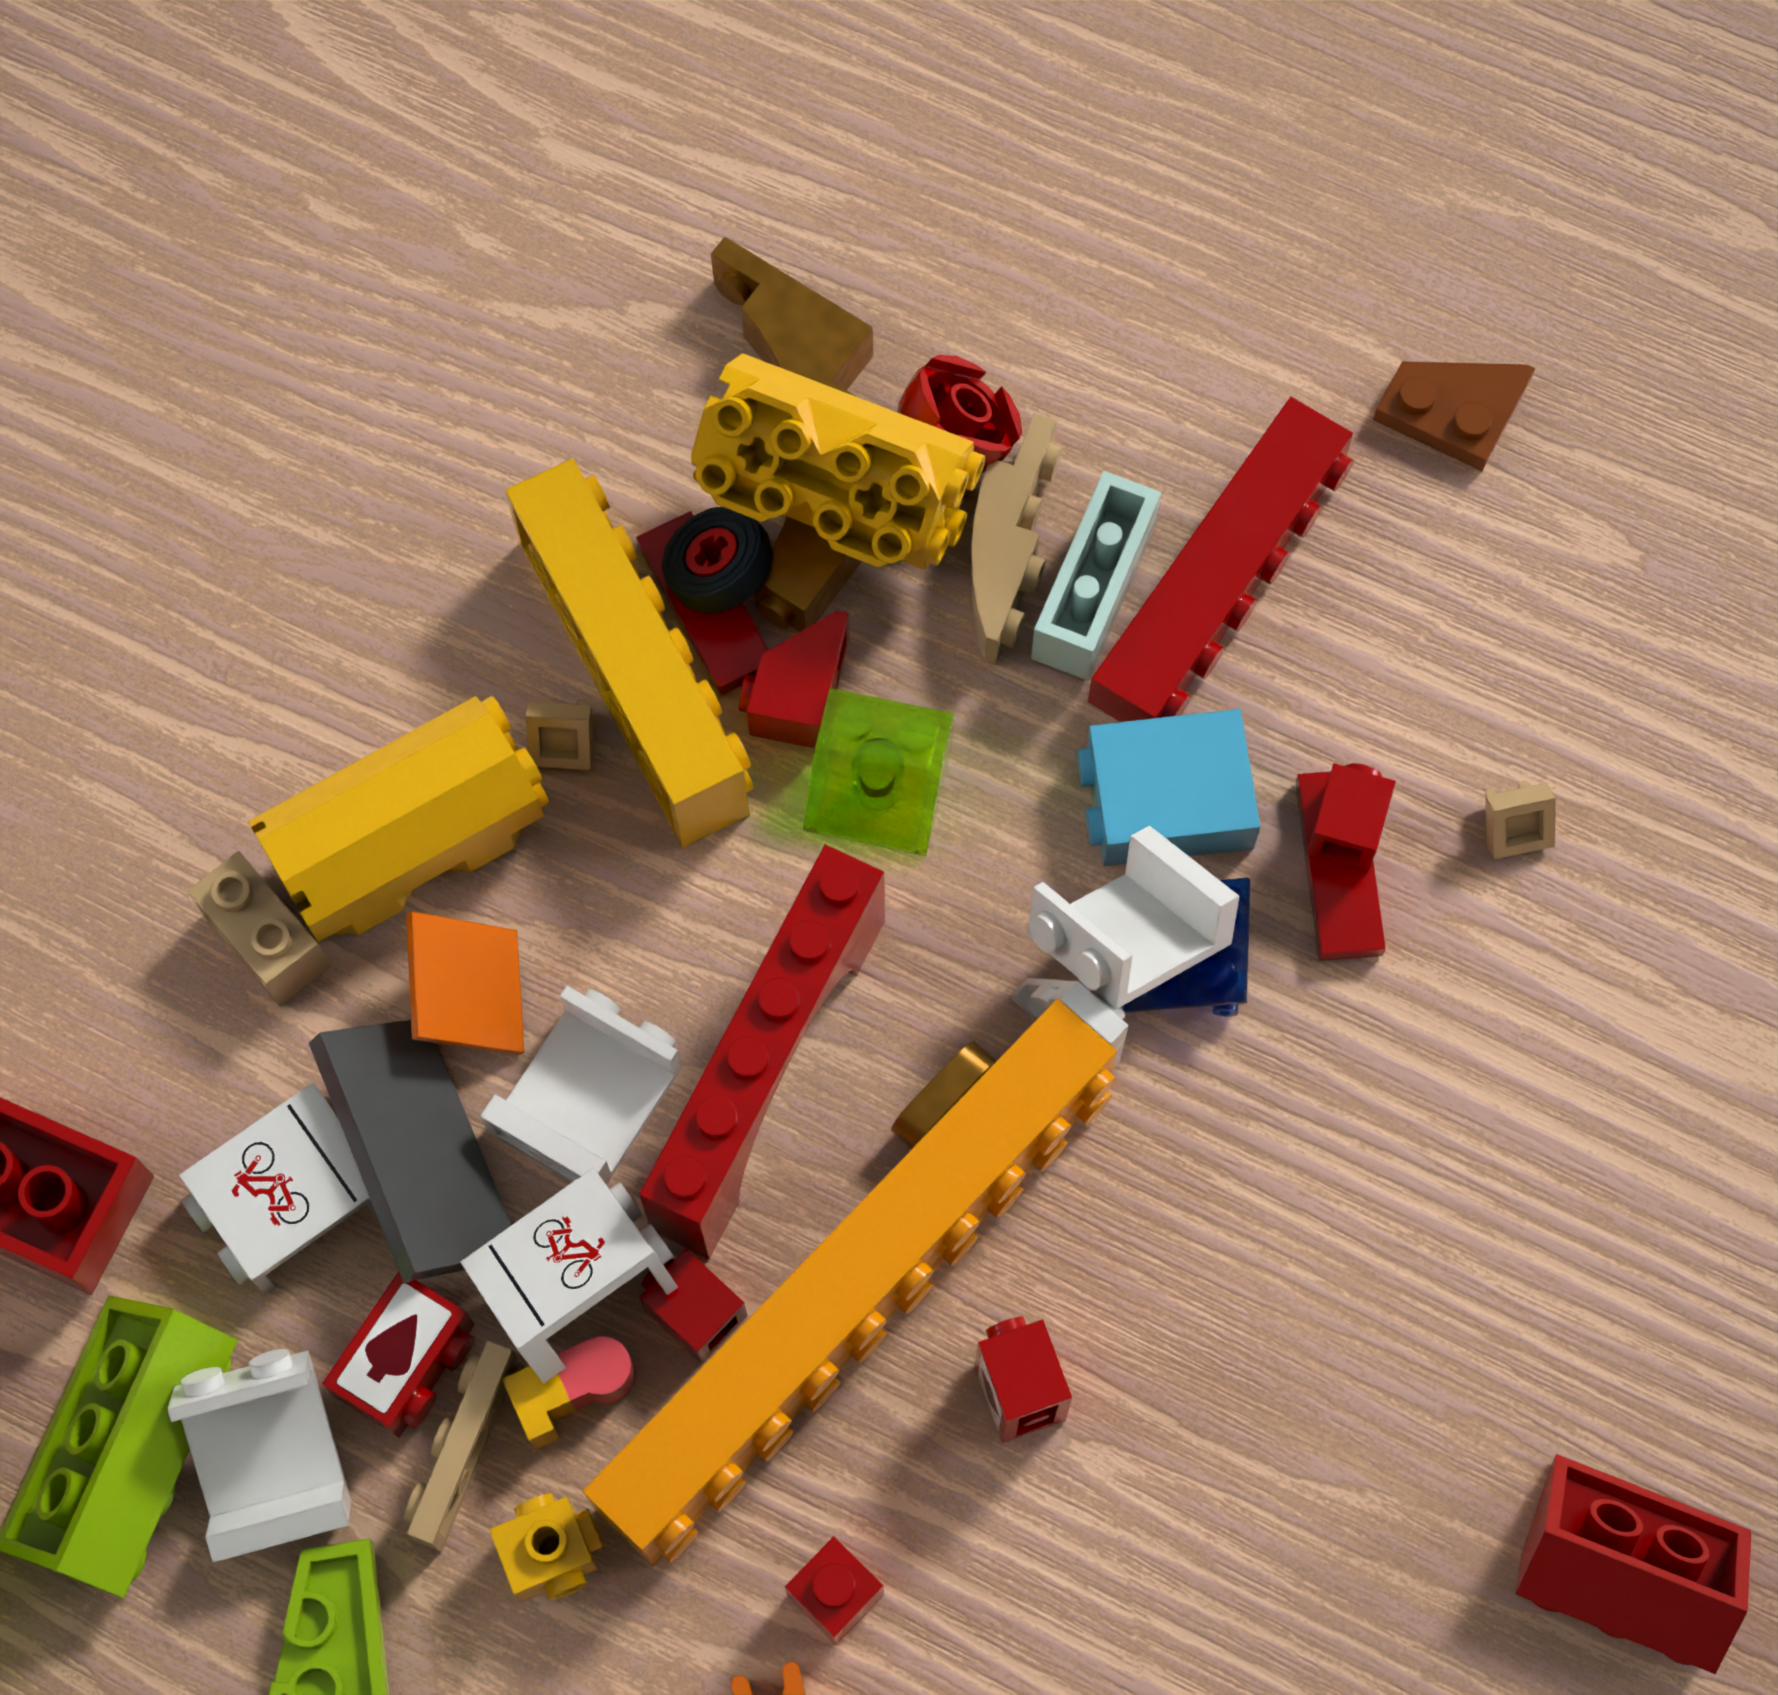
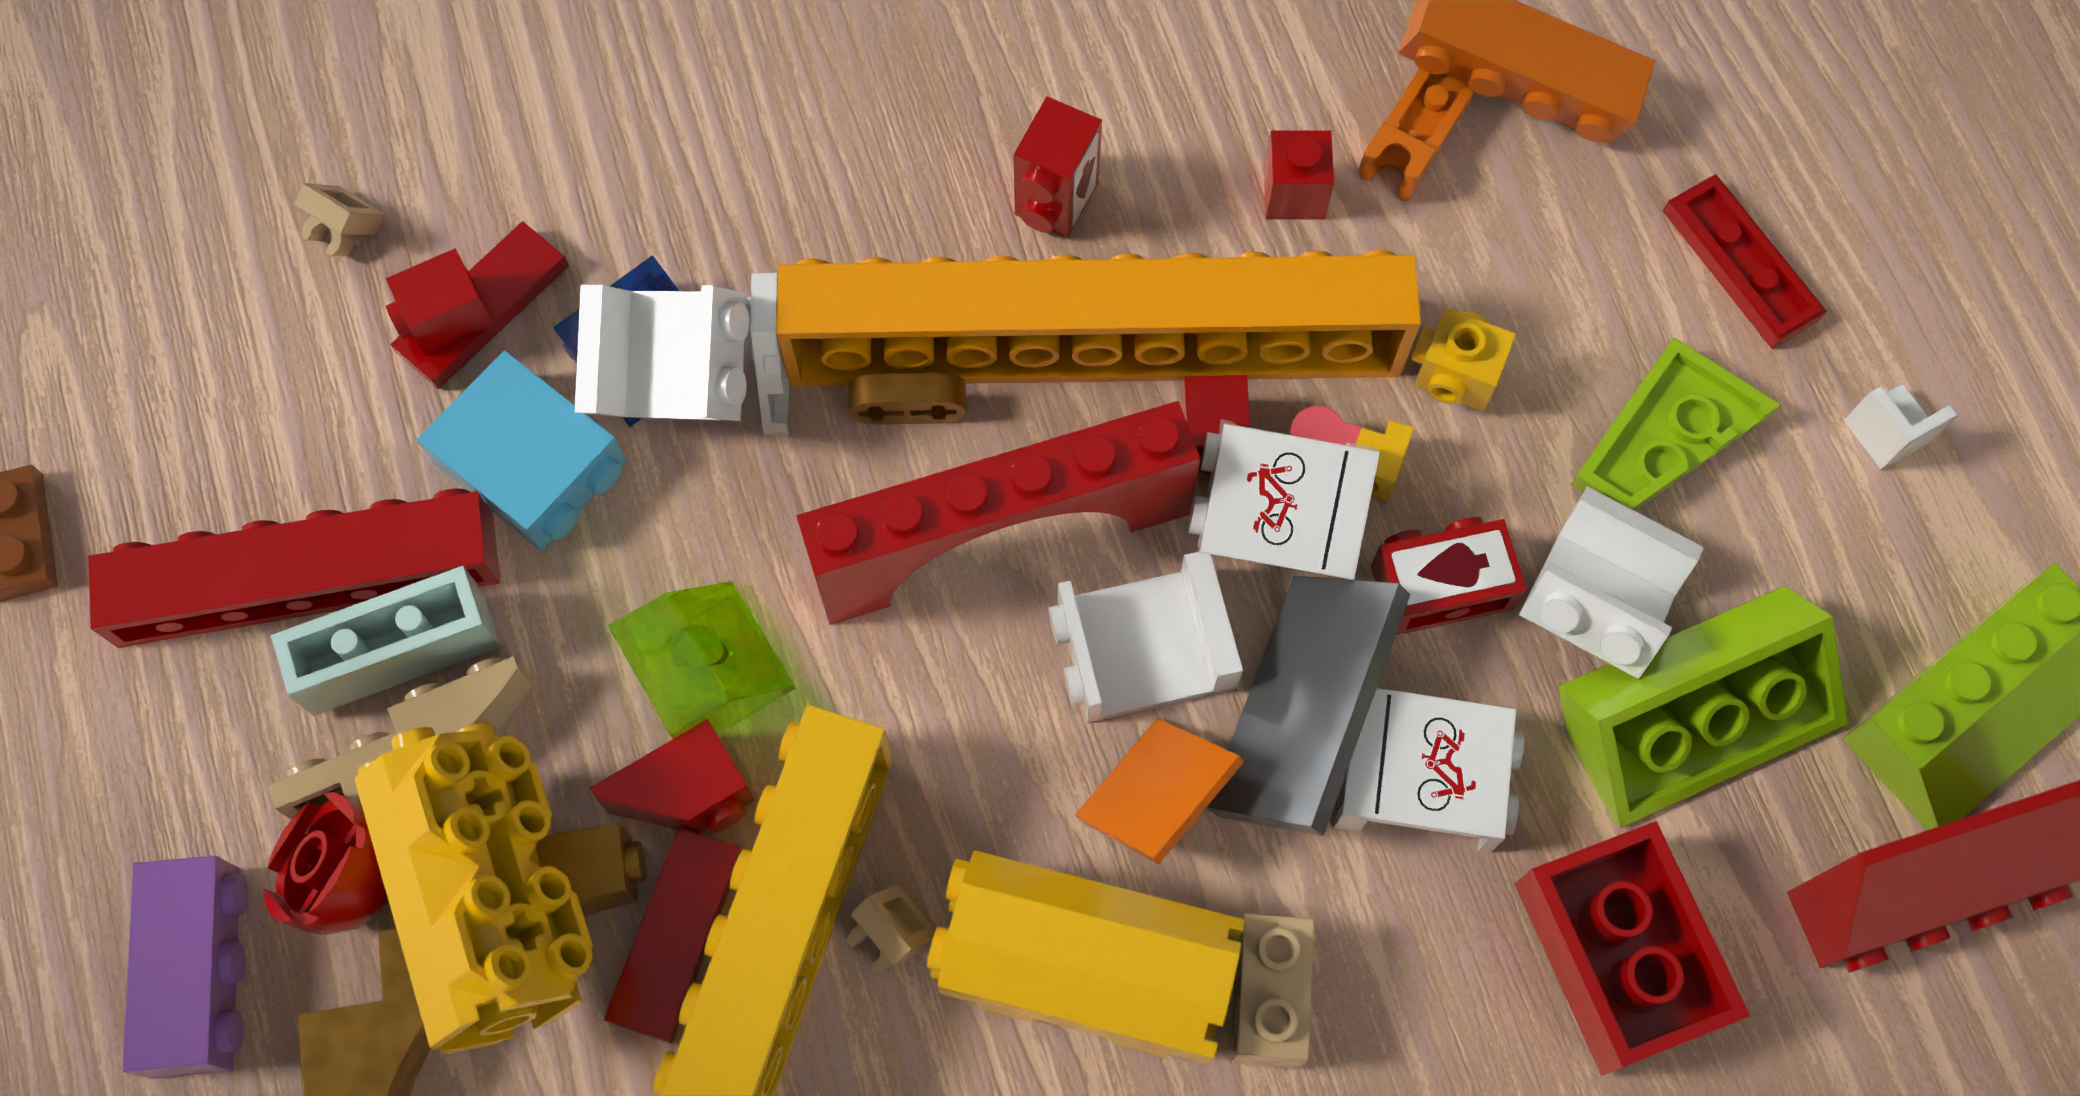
camera: 135 degrees left, 0 degrees up
(460, 1446) = (1458, 479): tan plate -> none
(731, 581) = (653, 962): black bush -> none
(985, 296) = (184, 967): none -> medium lavender brick

